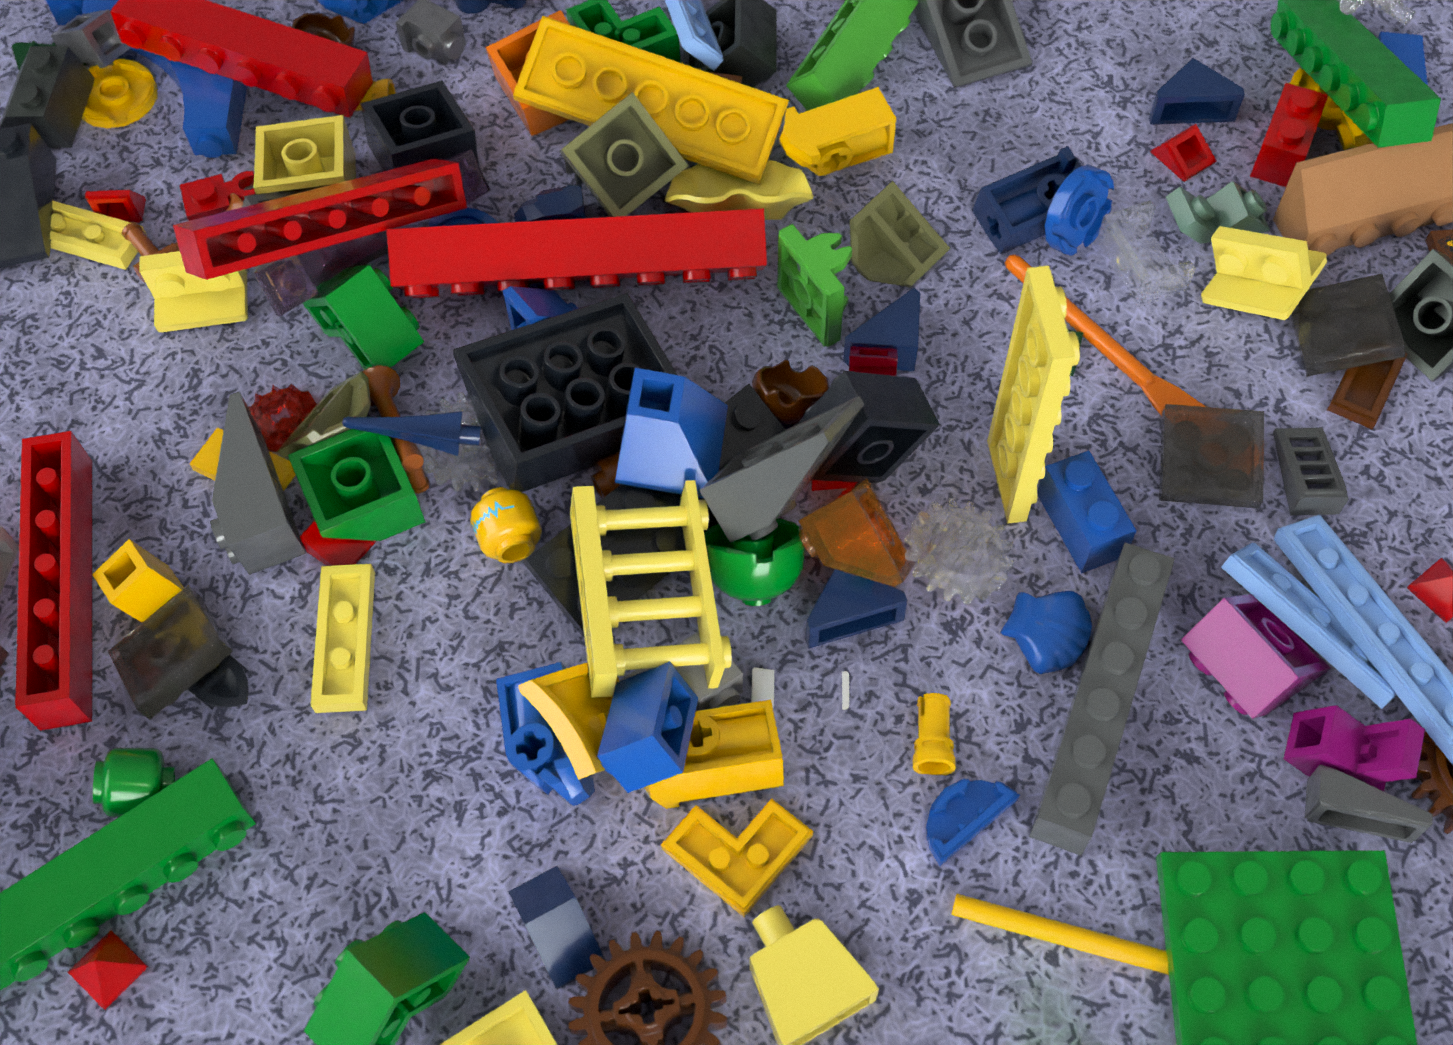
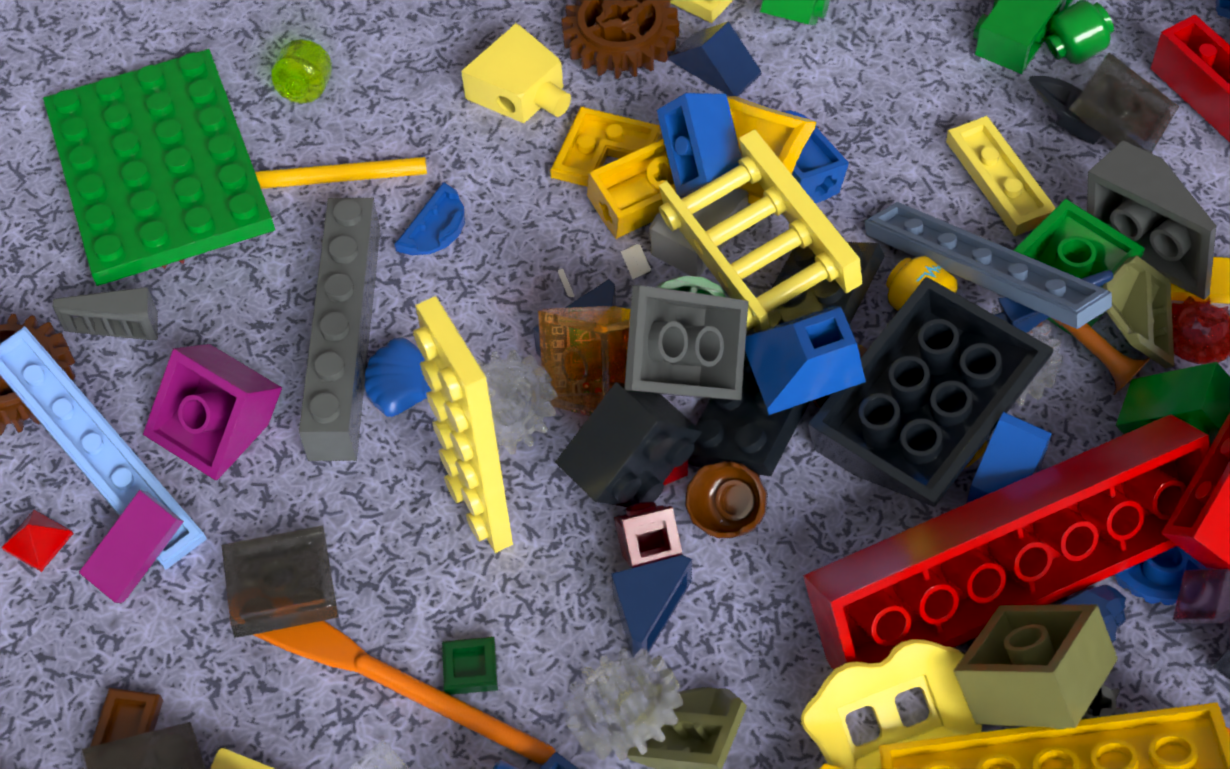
camera: 160 degrees right, 5 degrees down
(137, 581) = (1191, 139): yellow brick -> none
(443, 498) = (990, 265): none -> sand blue tile
(814, 289) = (746, 597): bright green piece -> none
(924, 261) = (623, 704): none -> clear gear
(934, 736) = (475, 254): yellow pin -> none
(1085, 511) = (394, 476): blue brick -> none
(1300, 499) = (167, 581): dark grey slope -> none
(1307, 618) = (180, 463): light blue tile -> none
(1350, 527) = (131, 547): none -> magenta tile
(1365, 752) = (118, 352): magenta brick -> none

